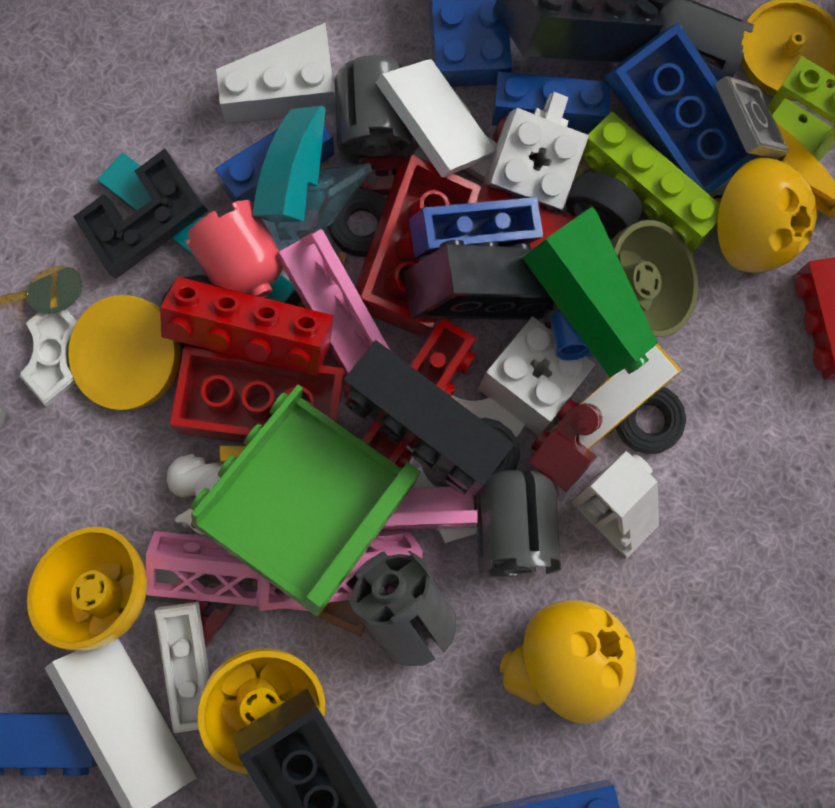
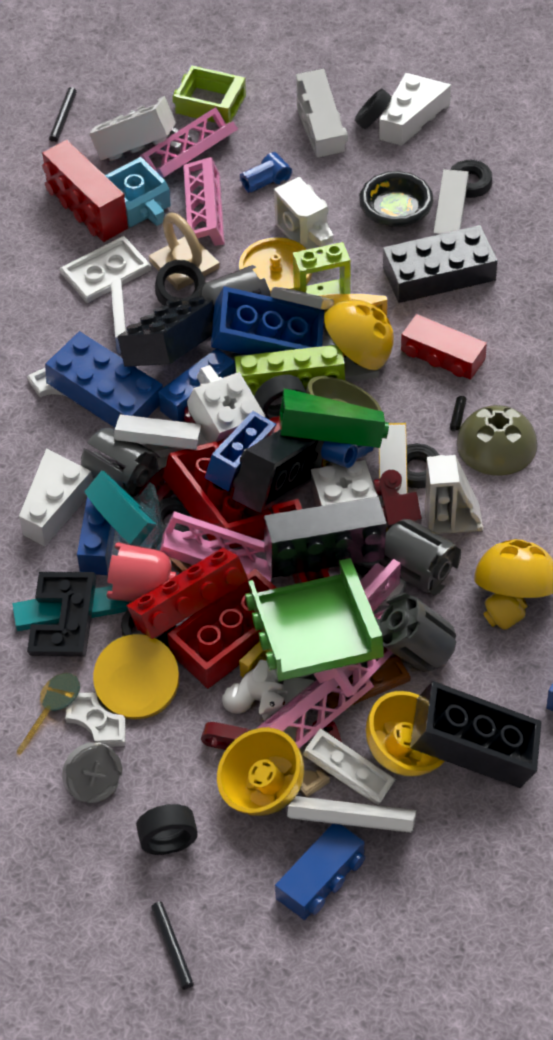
camera: 40 degrees left, 25 degrees down
(127, 509) = (221, 735): none -> dark red beam
(143, 633) = (313, 782): none -> tan tile
(745, 491) = (497, 440): none -> olive piece
(761, 405) = (458, 413): none -> black piece

